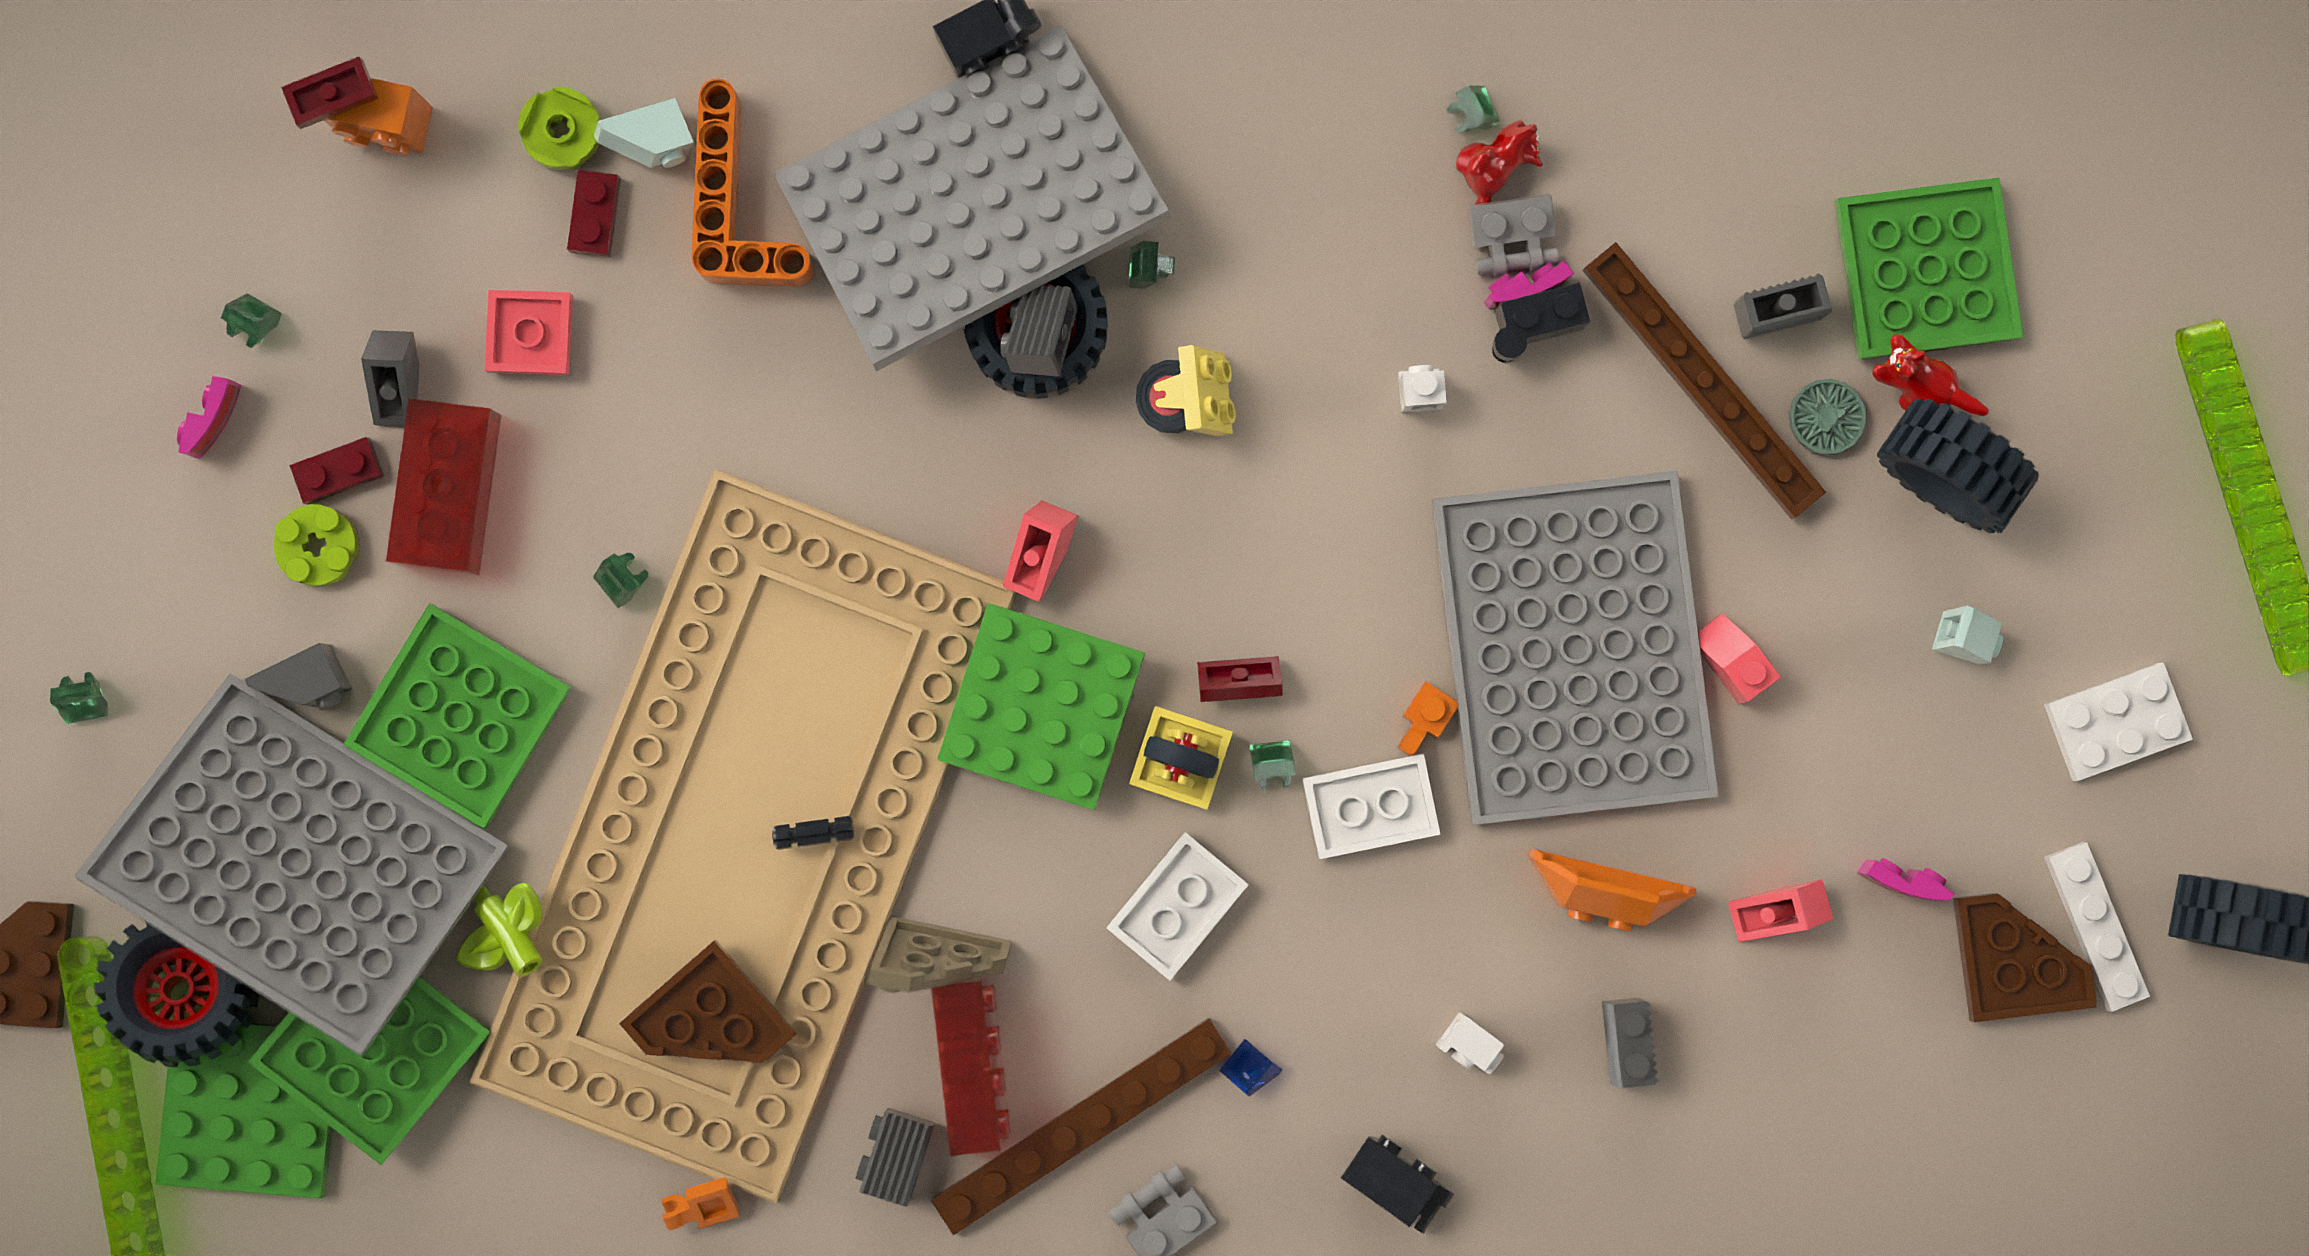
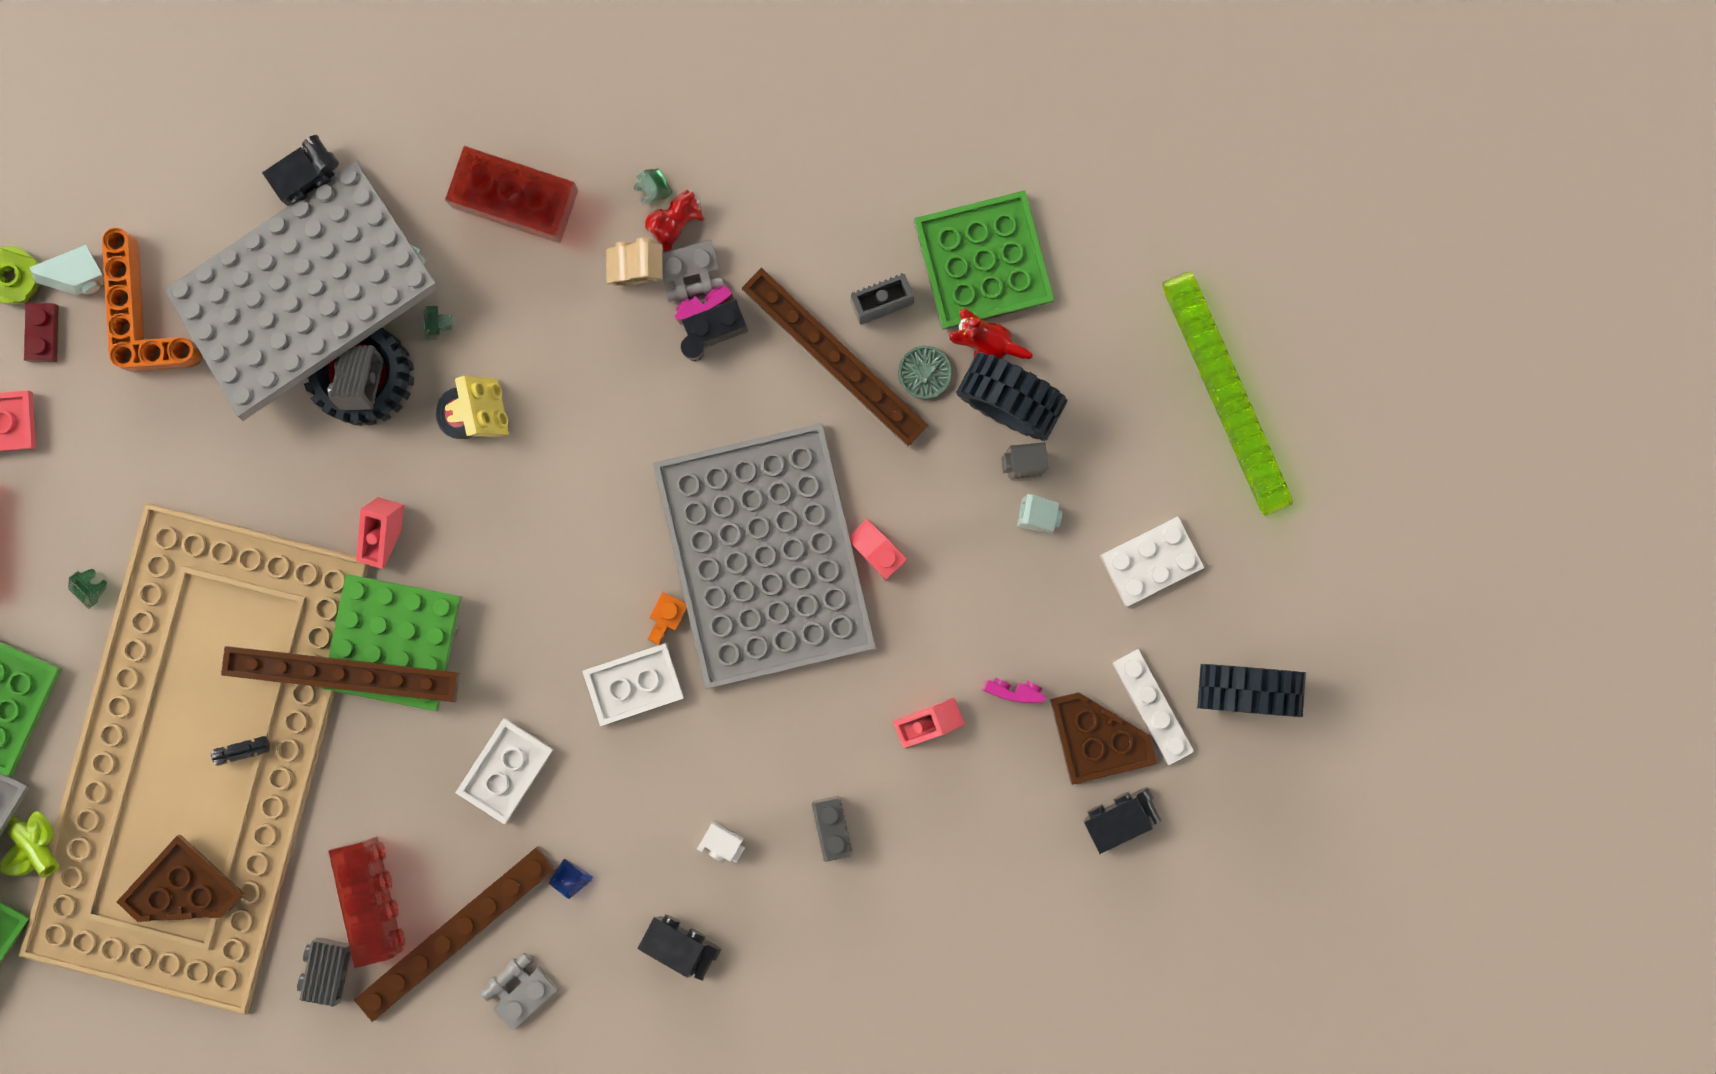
camera: 10 degrees left, 0 degrees up
(704, 1203) = (192, 1021): orange plate -> none
(930, 956) = (329, 826): dark tan plate -> none
(970, 742) = (340, 674): none -> reddish brown plate
(1181, 757) = (495, 666): light yellow plate -> none
(1239, 679) = (530, 606): dark red plate -> none
(1247, 73) = (484, 189): none -> clear red brick
(1272, 760) = (559, 661): clear green tile -> none
(1422, 389) = (636, 387): white brick -> none
(1440, 214) = (634, 263): none -> tan brick
(1607, 891) = (804, 724): orange wedge -> none
(1962, 558) = (1025, 460): none -> dark grey brick
(2039, 1082) = (1121, 820): none -> black hinge

